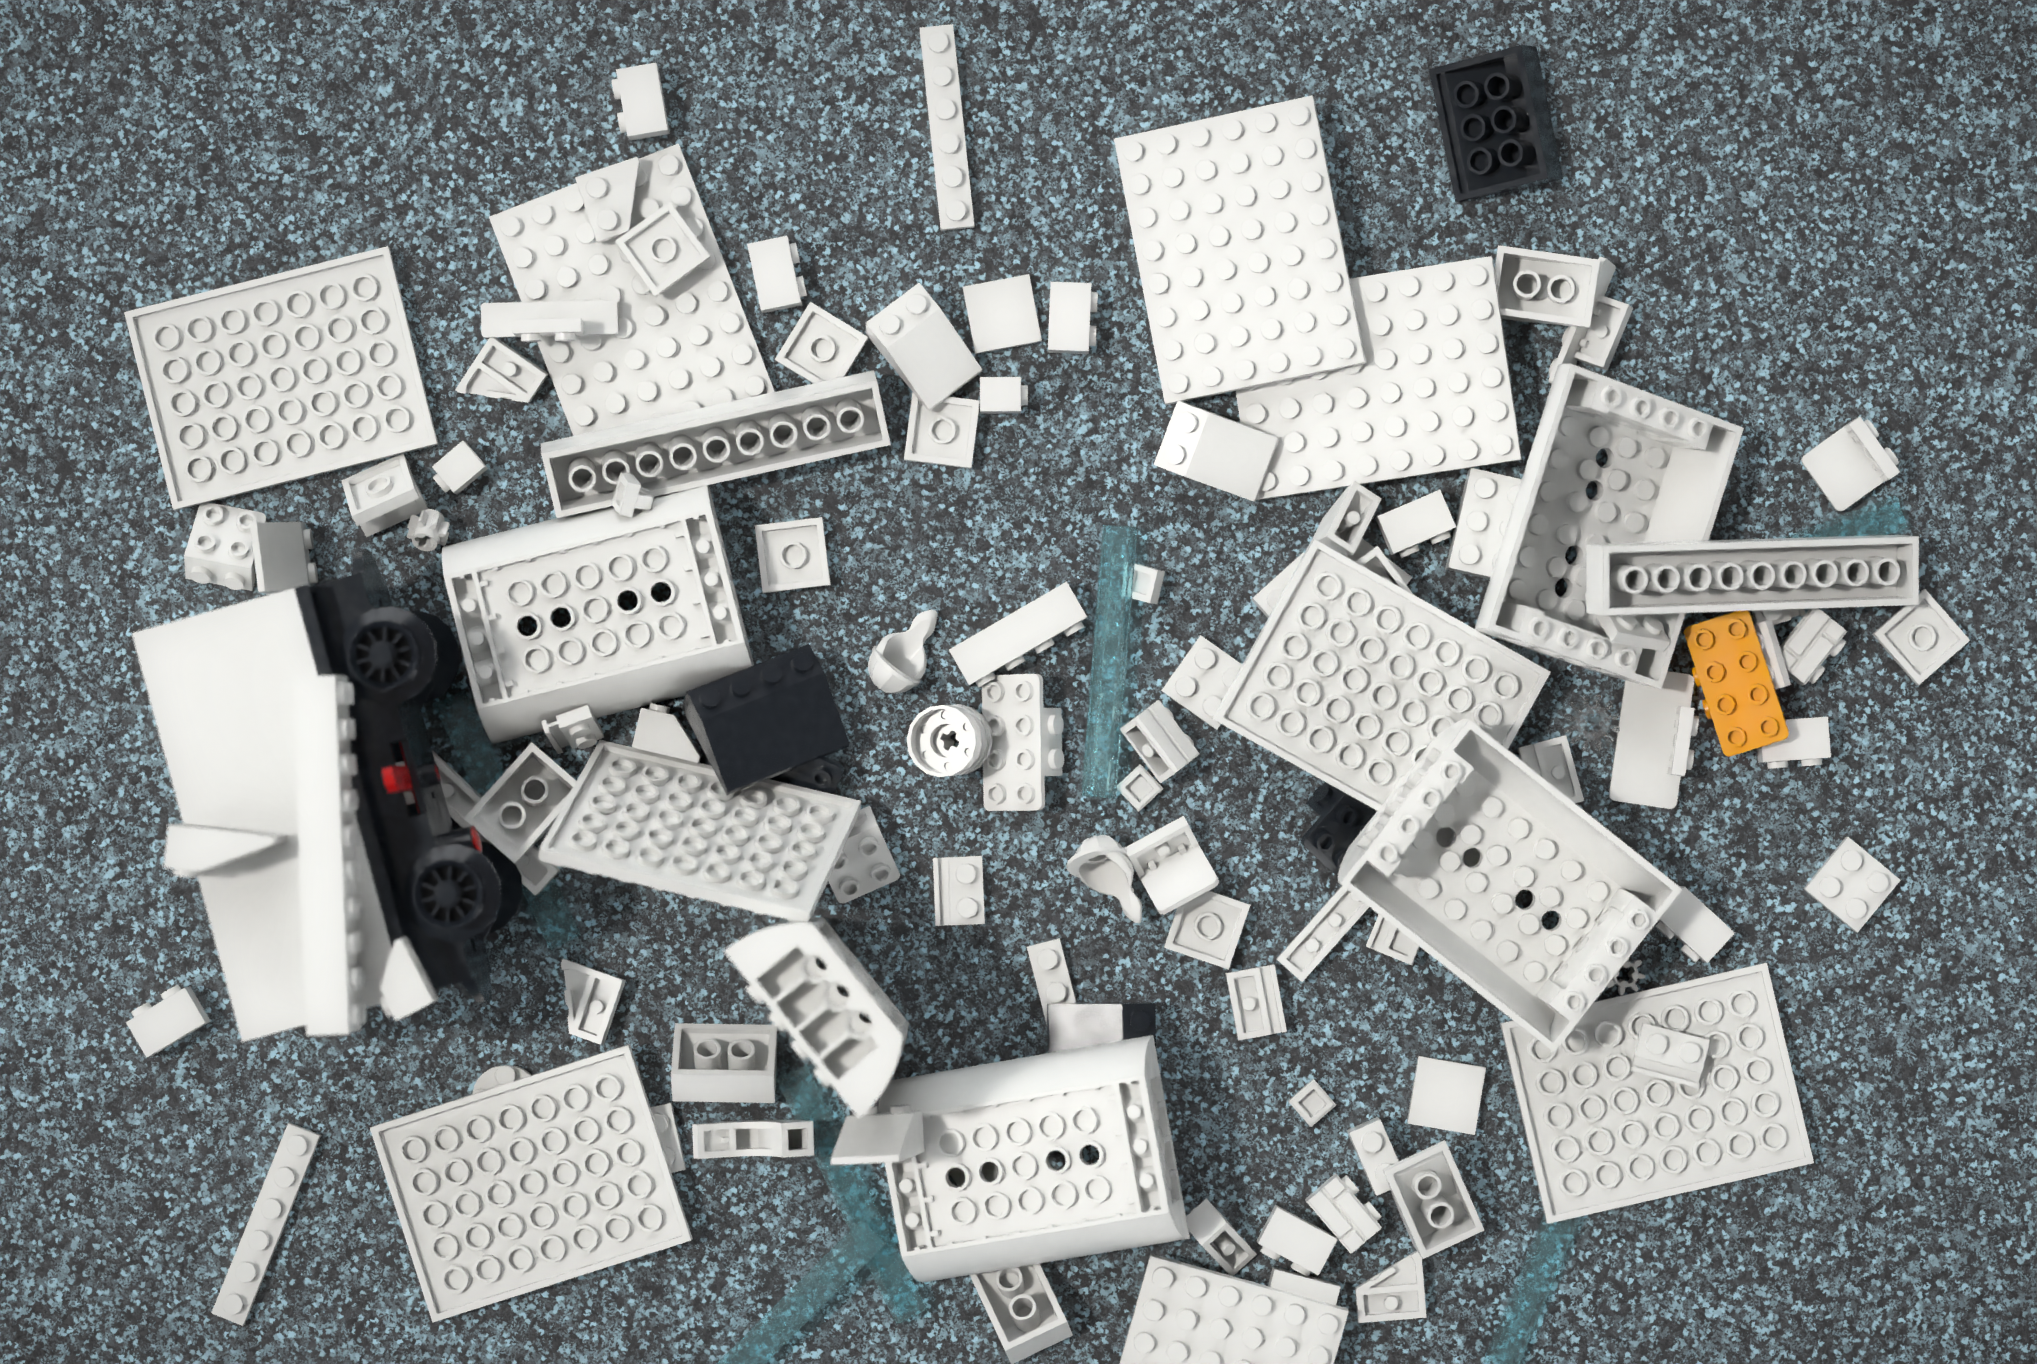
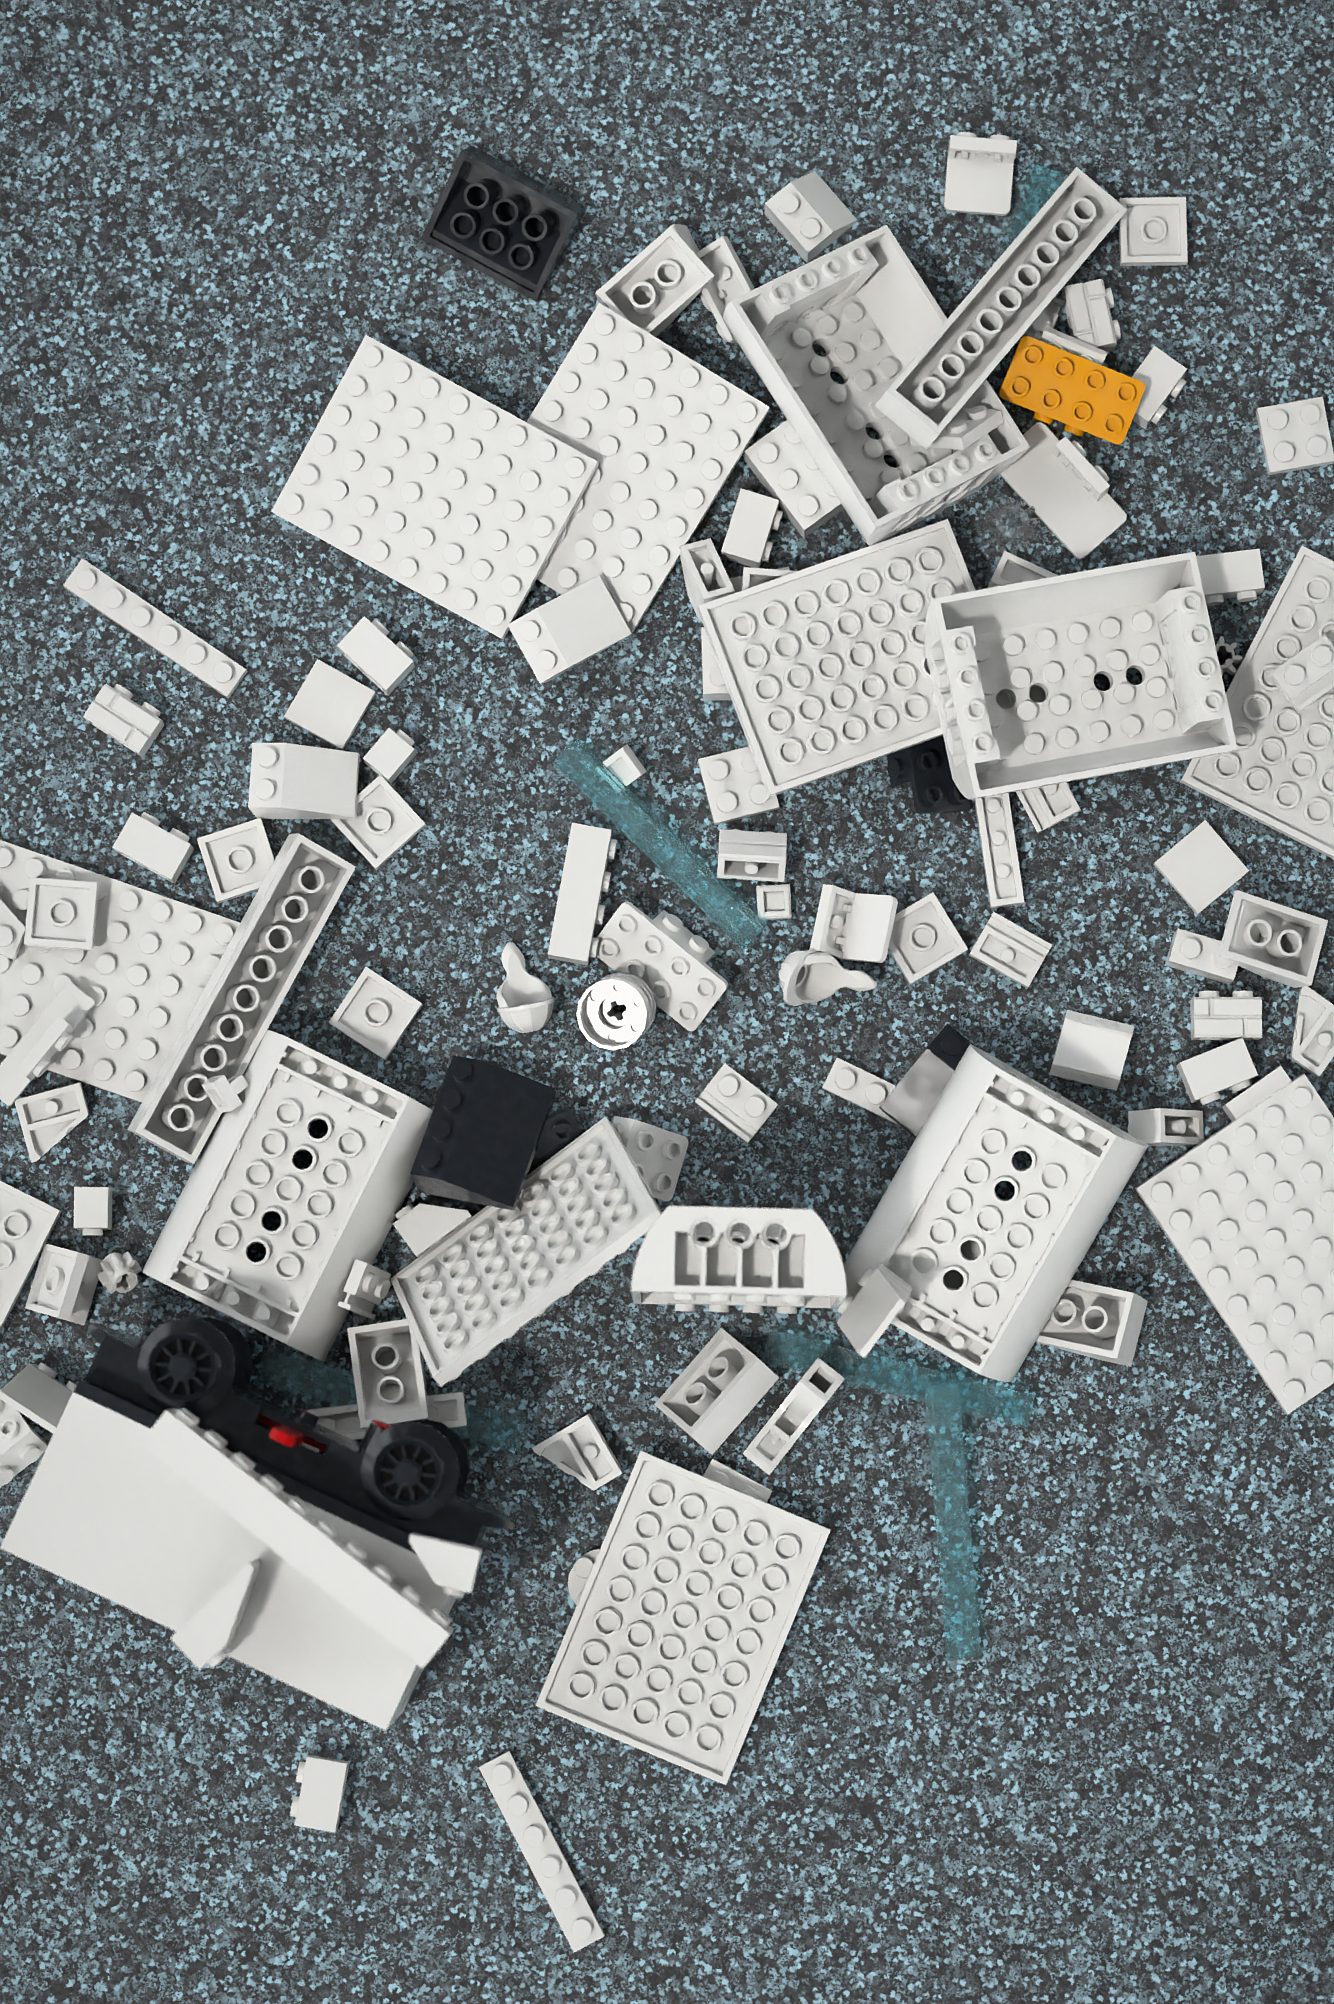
camera: 50 degrees left, 5 degrees down
(855, 166) = (124, 719): none -> white brick
(1231, 1130) = (1091, 1050): none -> white slope
(1312, 1102) = (1122, 973): white tile -> none
(1706, 357) = (809, 215): none -> white slope

